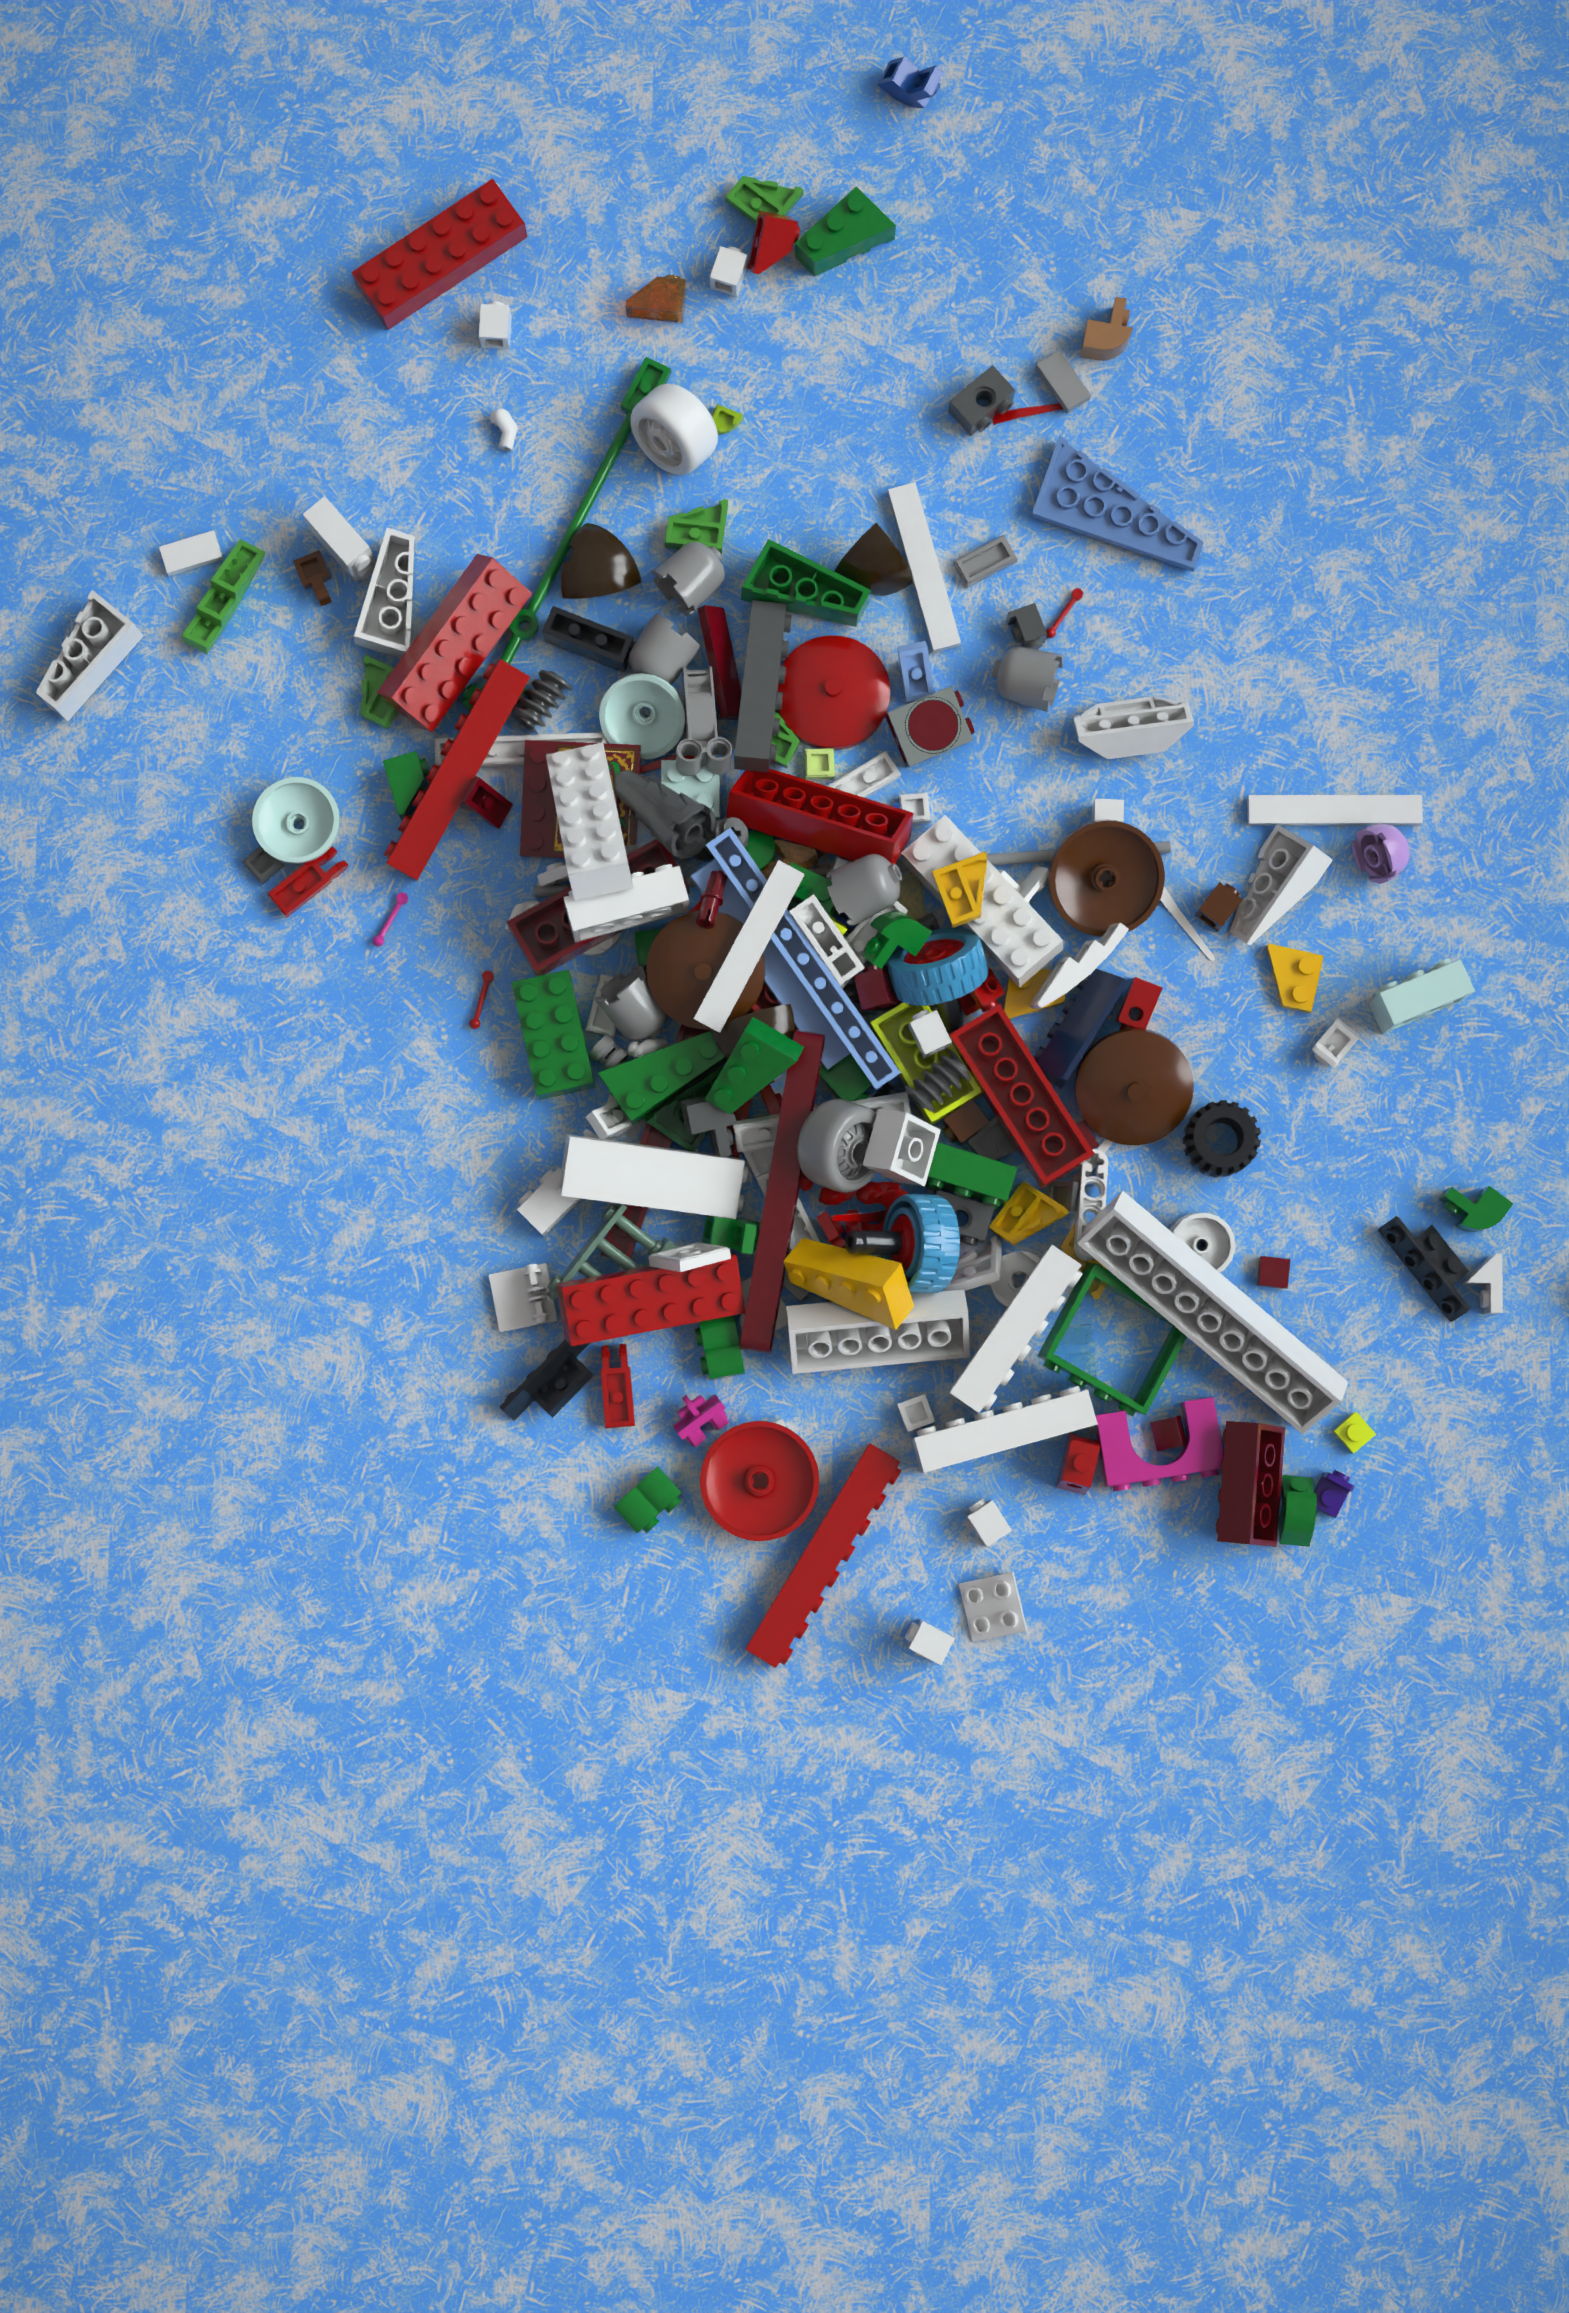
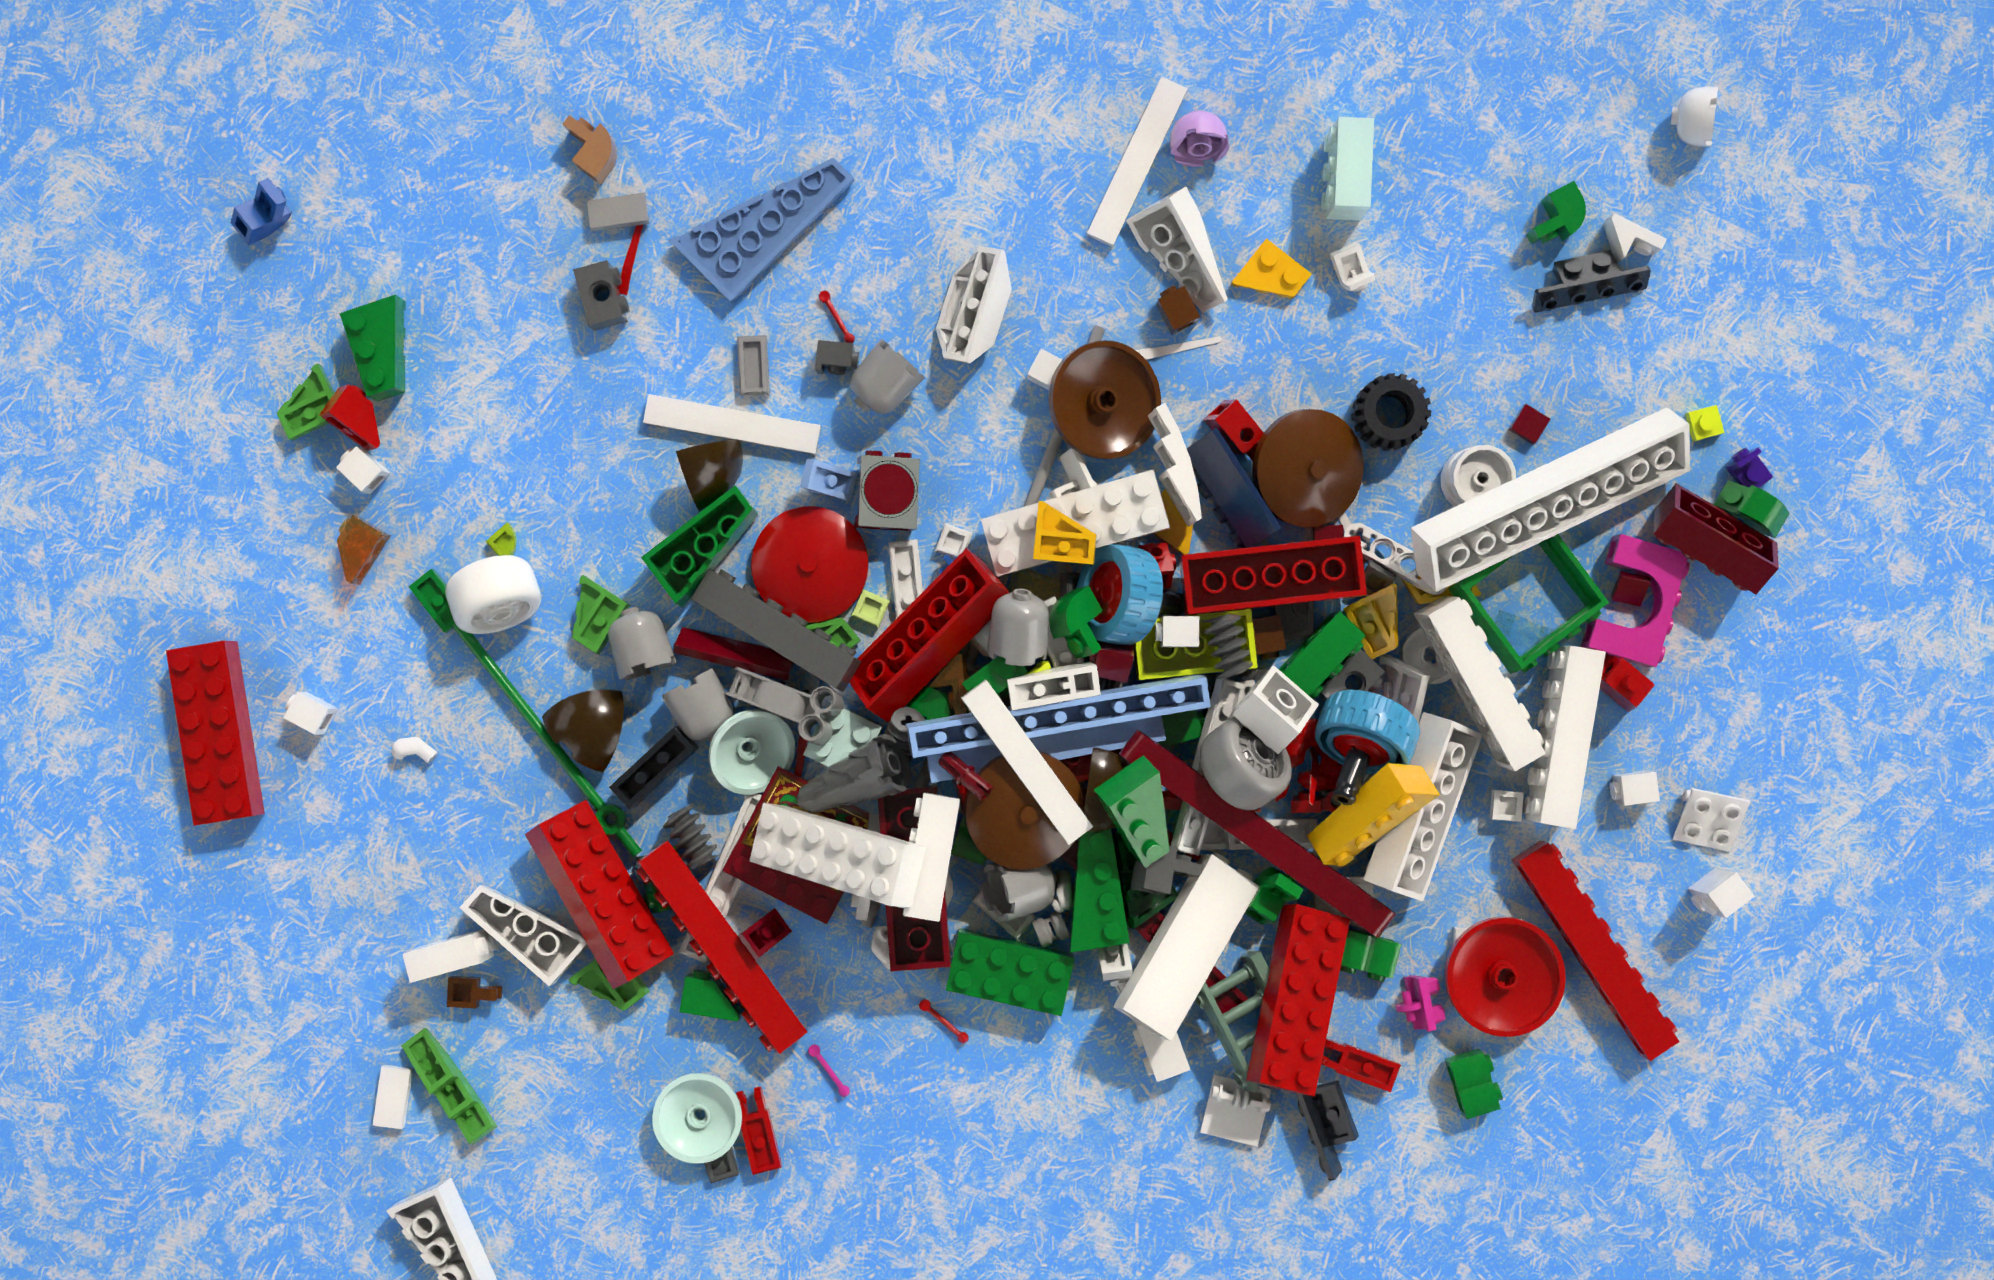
camera: 65 degrees left, 5 degrees up
(689, 1256) = (1280, 948): white tile -> none

